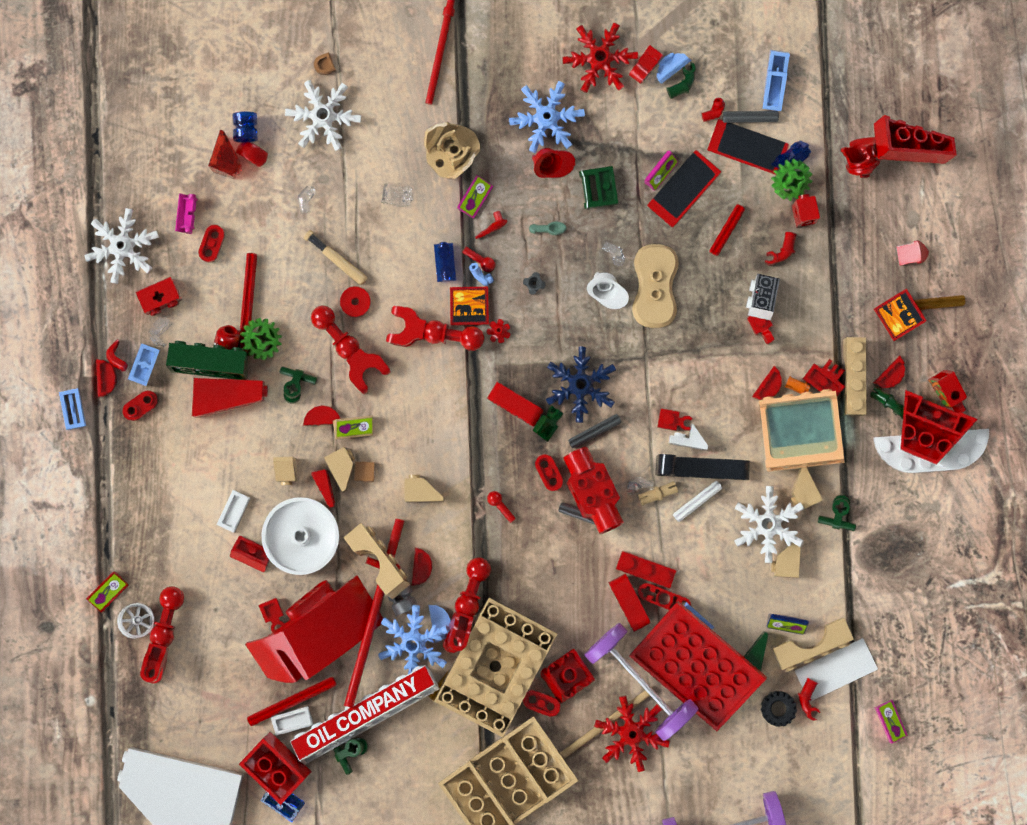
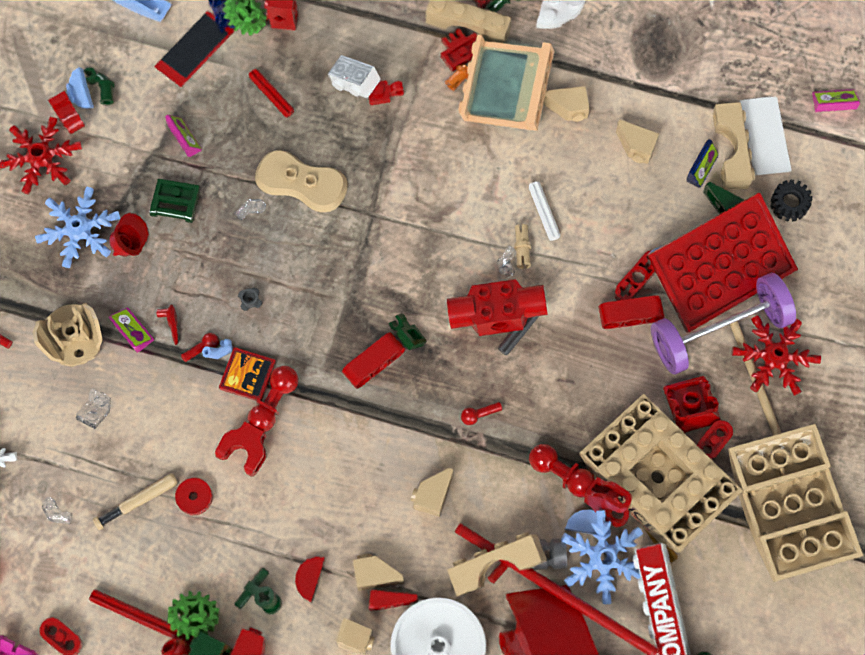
camera: 70 degrees left, 15 degrees down
(348, 348) = (242, 519): red piece -> none
(353, 427) = (334, 544): slope -> none
(364, 471) = (389, 550): medium nougat tile -> none
(422, 567) = (518, 521): red tile -> none
(444, 262) = (188, 384): clear blue hinge -> none
(498, 335) = (287, 353): red plant -> none
(549, 472) = (460, 347): red plate -> none
(553, 228) = (199, 260): sand green piece -> none
(581, 376) = (377, 278): dark blue piece -> none
(594, 431) = (433, 289): dark grey axle -> none
(607, 291) = (288, 224): white piece -> none
(646, 569) = (600, 286): red plate -> none
(670, 420) = (449, 210): red plate -> none
(684, 188) = (211, 121): black sticker -> none
(694, 441) = (477, 193): white slope -> none
(701, 467) = (500, 213): black beam -> none
(716, 110) = (144, 65): red arm -> none
(750, 116) = (164, 34): dark grey axle -> none
(763, 520) = (593, 138): white piece -> none
(770, 385) = (447, 103): red tile -> none
(786, 251) = (315, 45): red piece -> none
(804, 698) = (786, 171): red piece -> none
(837, 522) = (611, 84): dark green piece -> none

